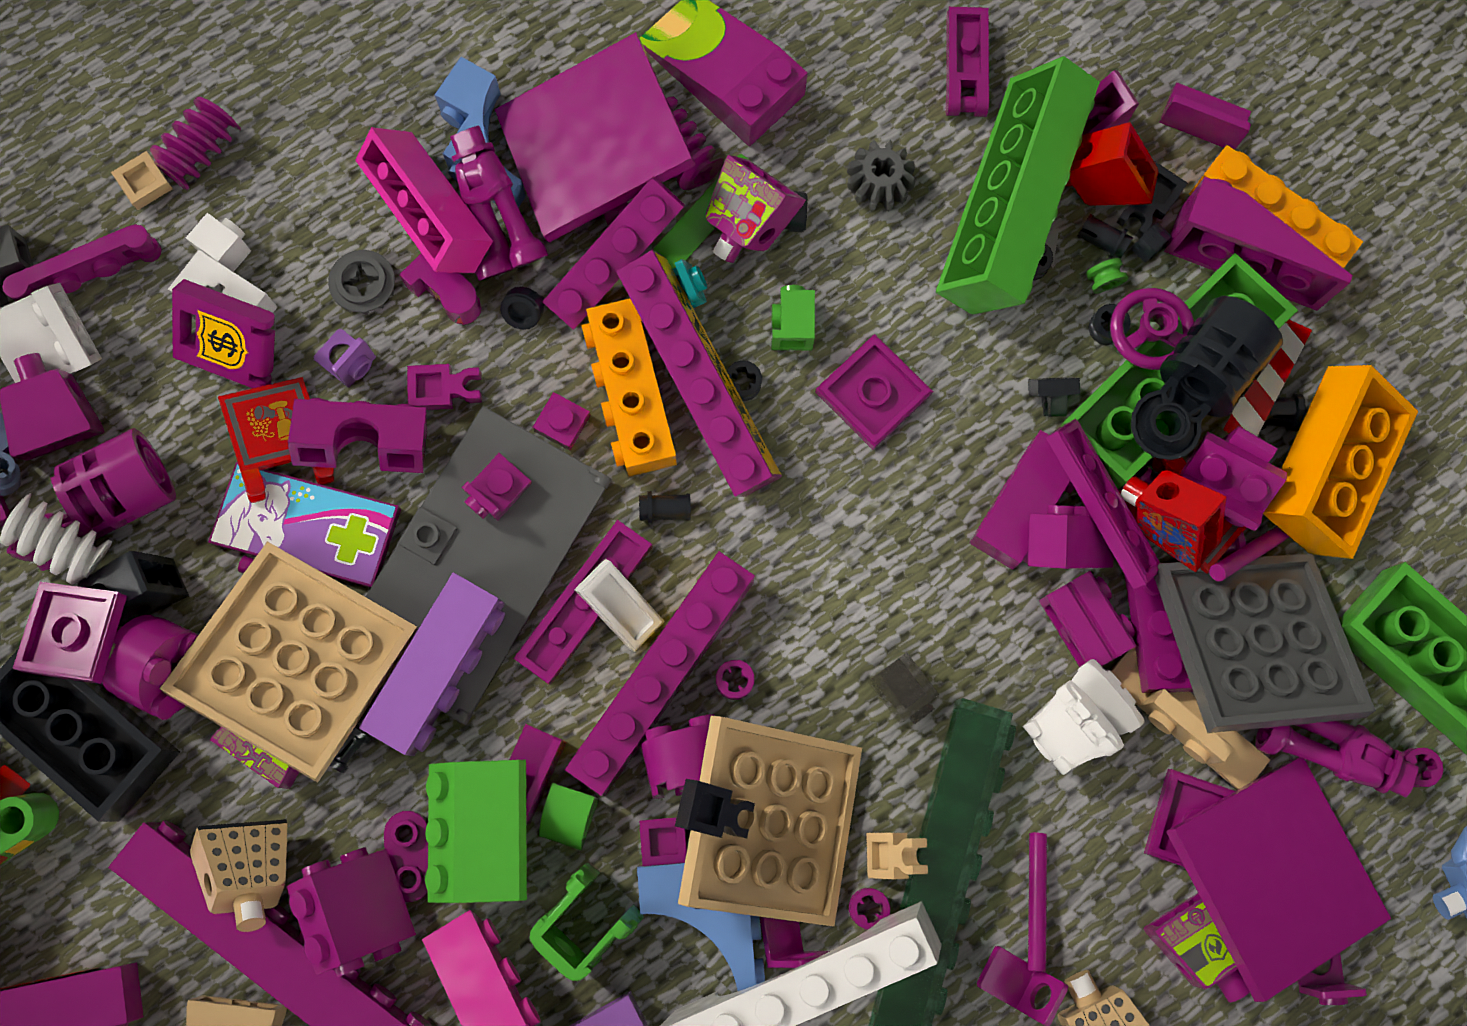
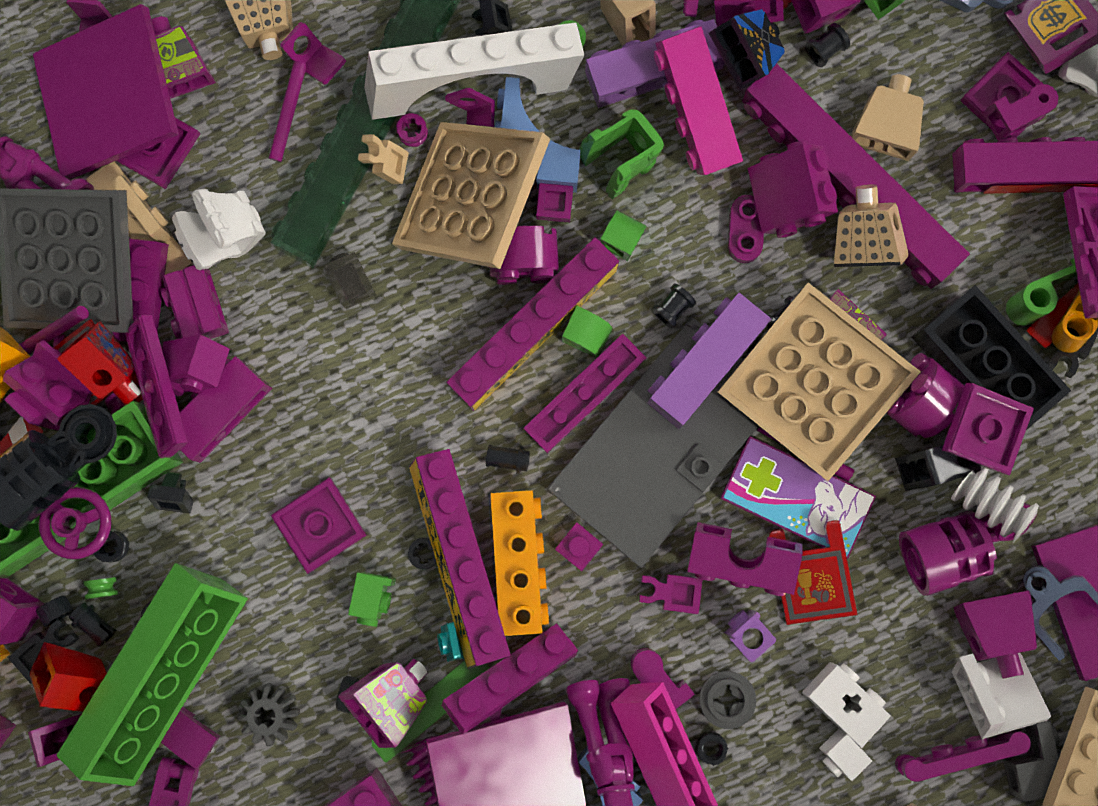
camera: 165 degrees left, 5 degrees up
(229, 336) = (848, 666): magenta container -> none
(368, 217) = (715, 759): none -> black axle
(476, 832) = (692, 229): bright green slope -> none
(488, 733) = (673, 305): none -> black bush
(495, 488) = (640, 493): magenta bracket -> none
(522, 307) = (595, 649): black tile -> none
(541, 757) = (648, 271): magenta panel -> none
(594, 678) = (587, 332): none -> bright green brick
(619, 605) = (557, 383): white tile -> none
(711, 810) = (512, 195): black plate -> none
(746, 673) = (468, 316): magenta bush -> none
(962, 136) = (190, 739): none -> magenta slope

